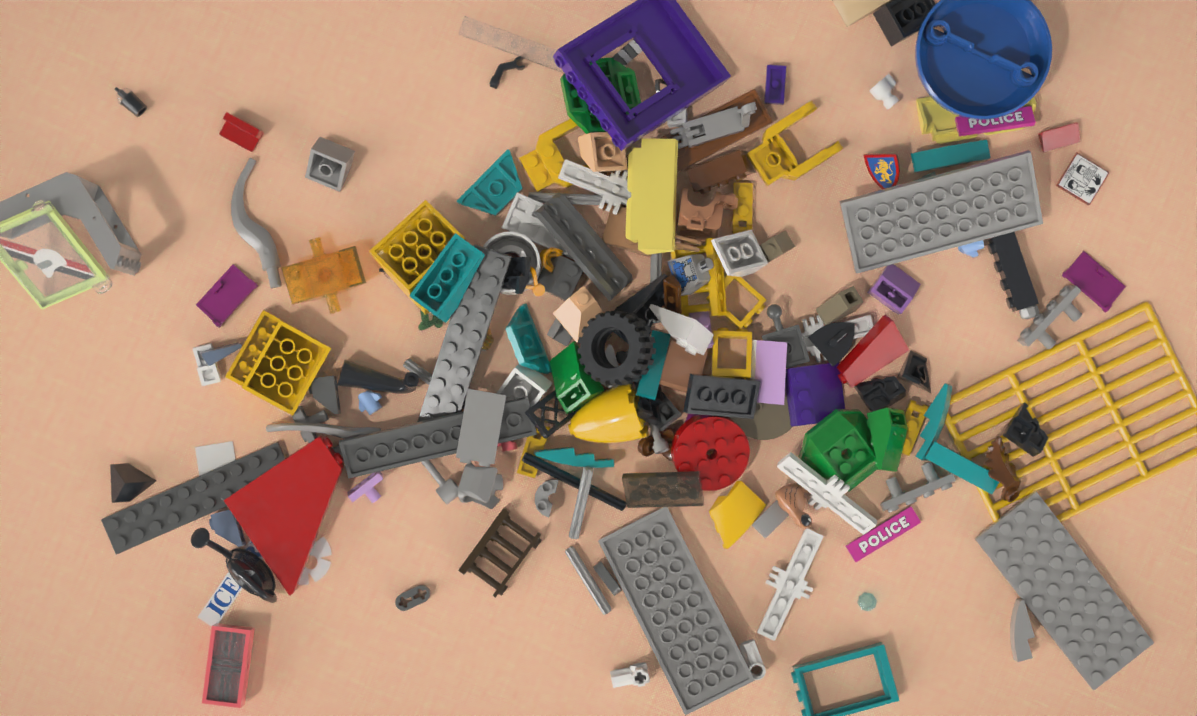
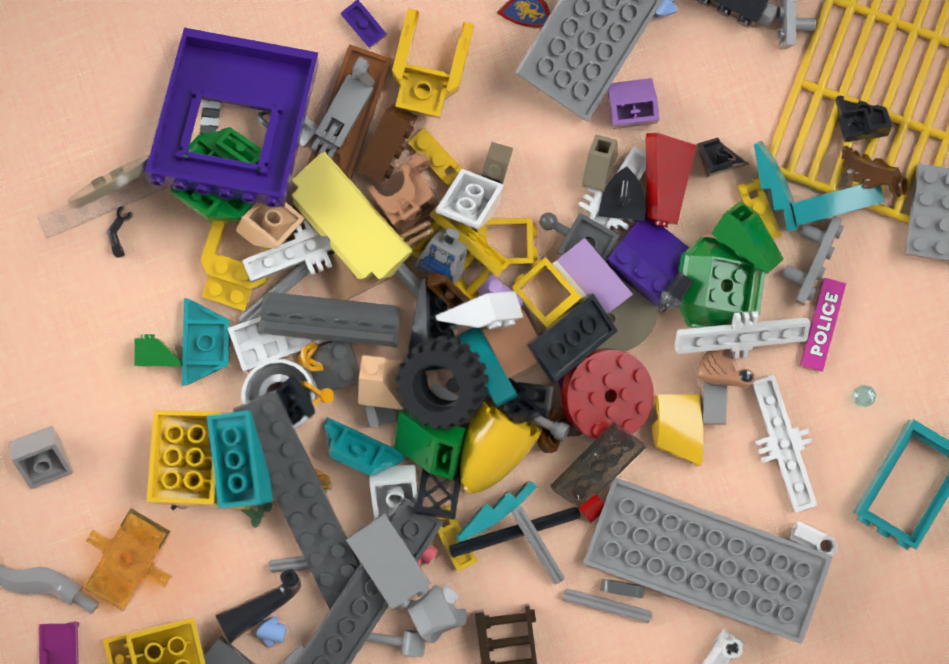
camera: 40 degrees left, 0 degrees up
(458, 165) = (153, 352): none -> green slope
(527, 35) = (108, 183): none -> dark tan plate
(542, 496) = (498, 571): light grey cylinder -> none
(635, 512) = (592, 508): none -> red tile
(811, 427) = (675, 292): none -> black piece
(880, 392) = (706, 204): black slope -> none

